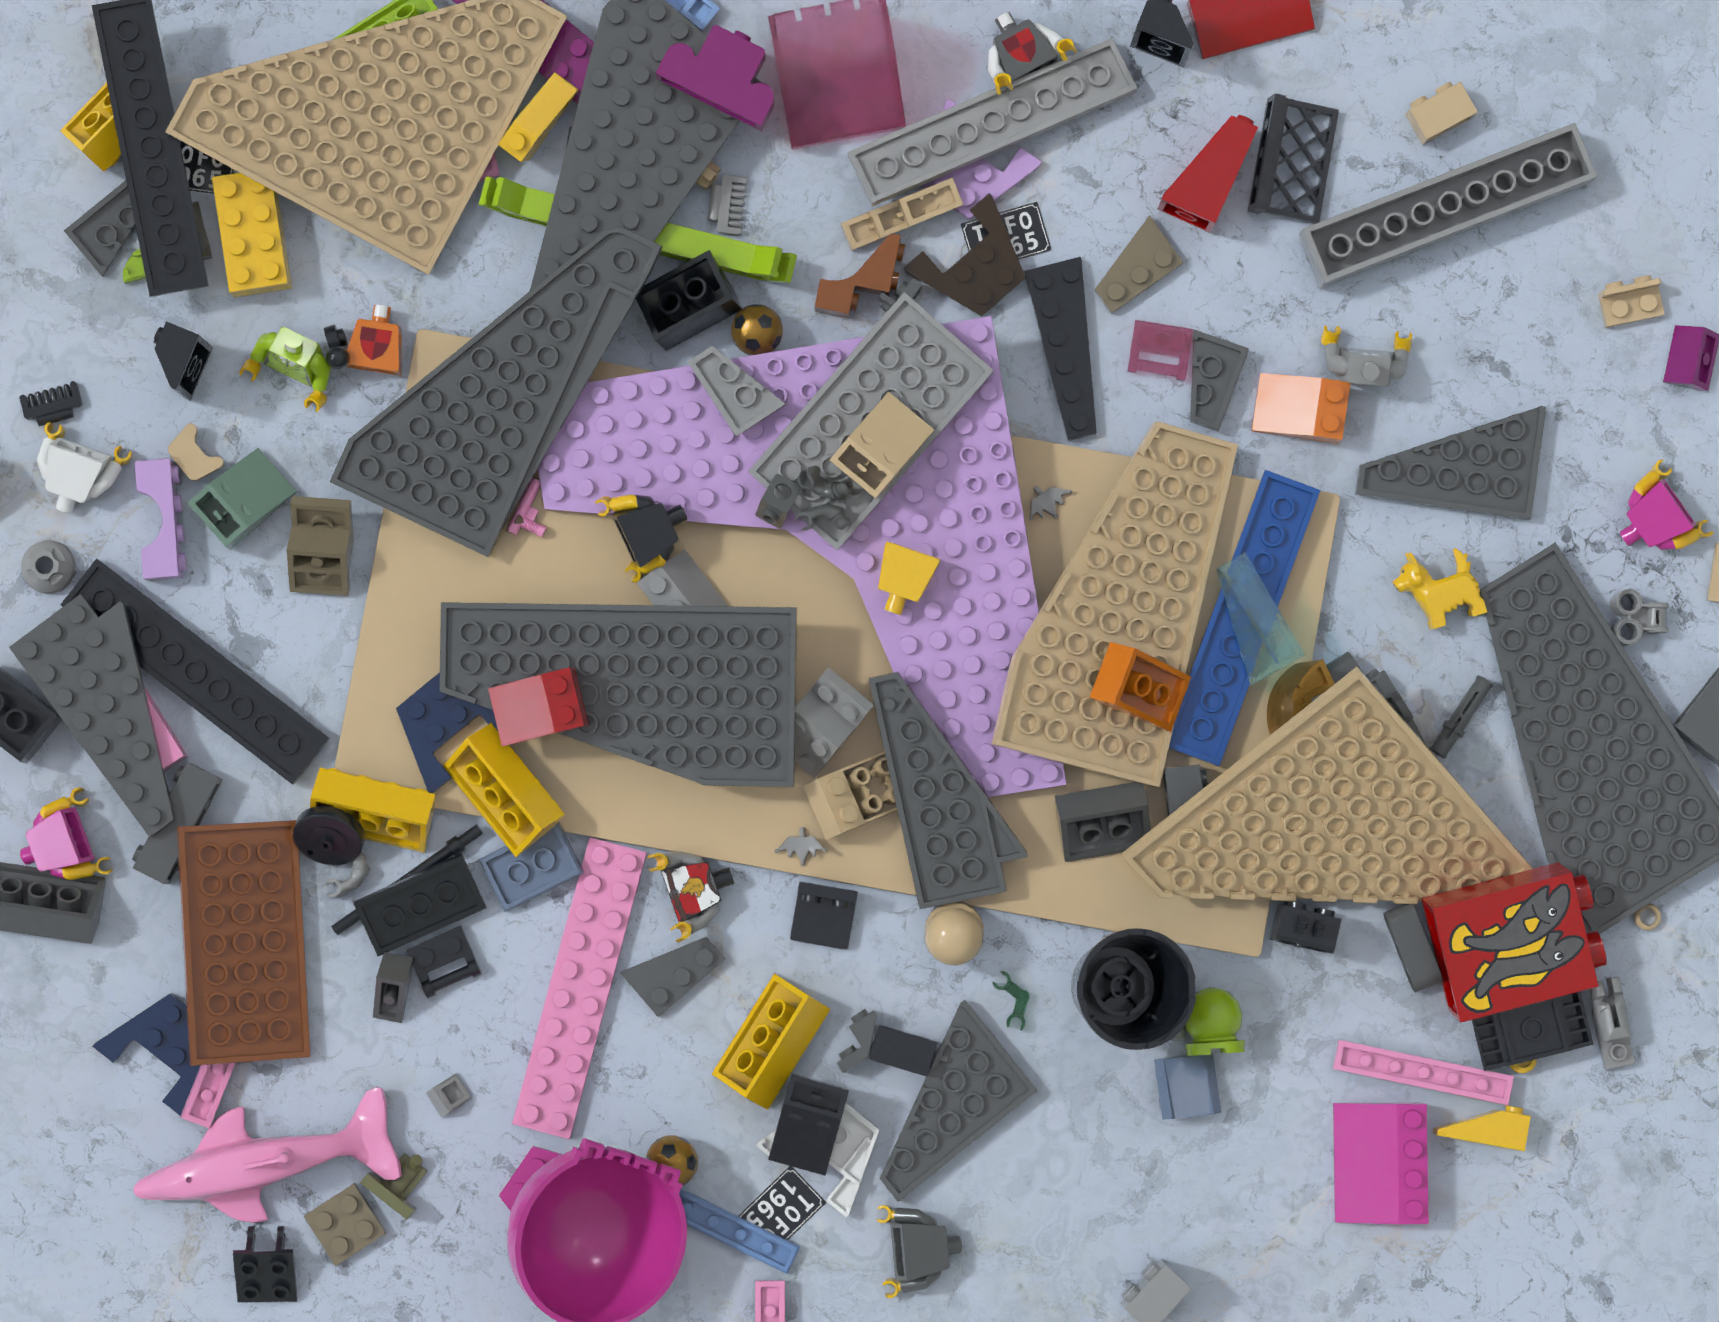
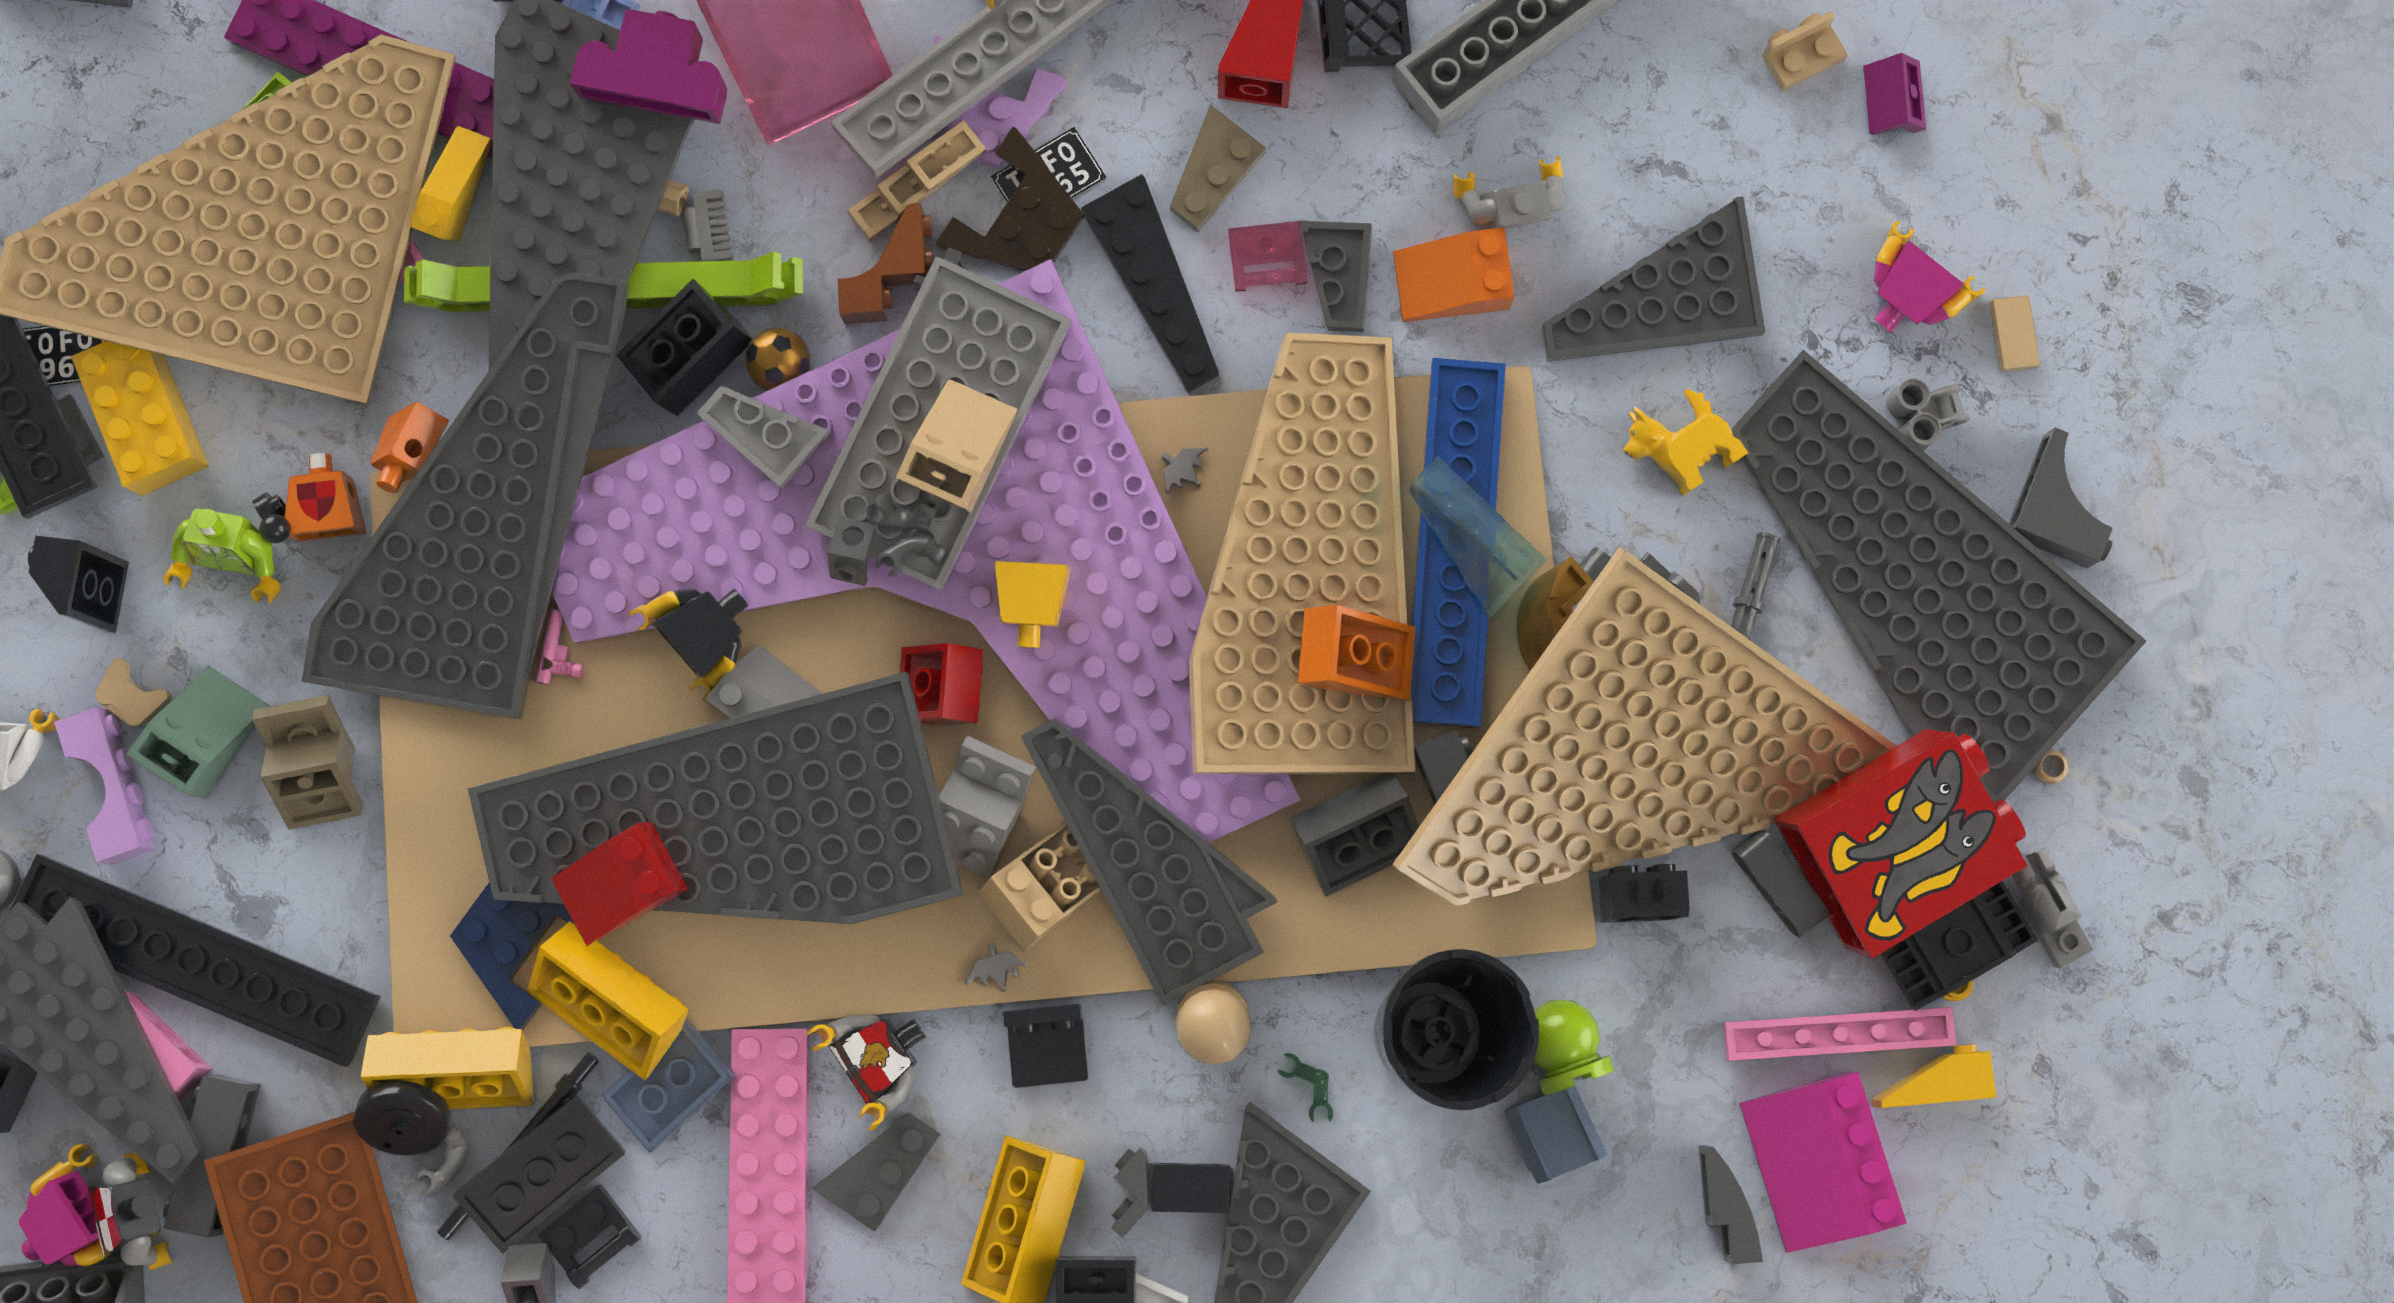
camera: 10 degrees left, 5 degrees down
(111, 850) = (128, 1214): none -> torso
(455, 319) = (406, 444): none -> orange torso
(820, 618) = (944, 681): none -> red slope
(1300, 1175) = (1728, 1207): none -> dark grey slope

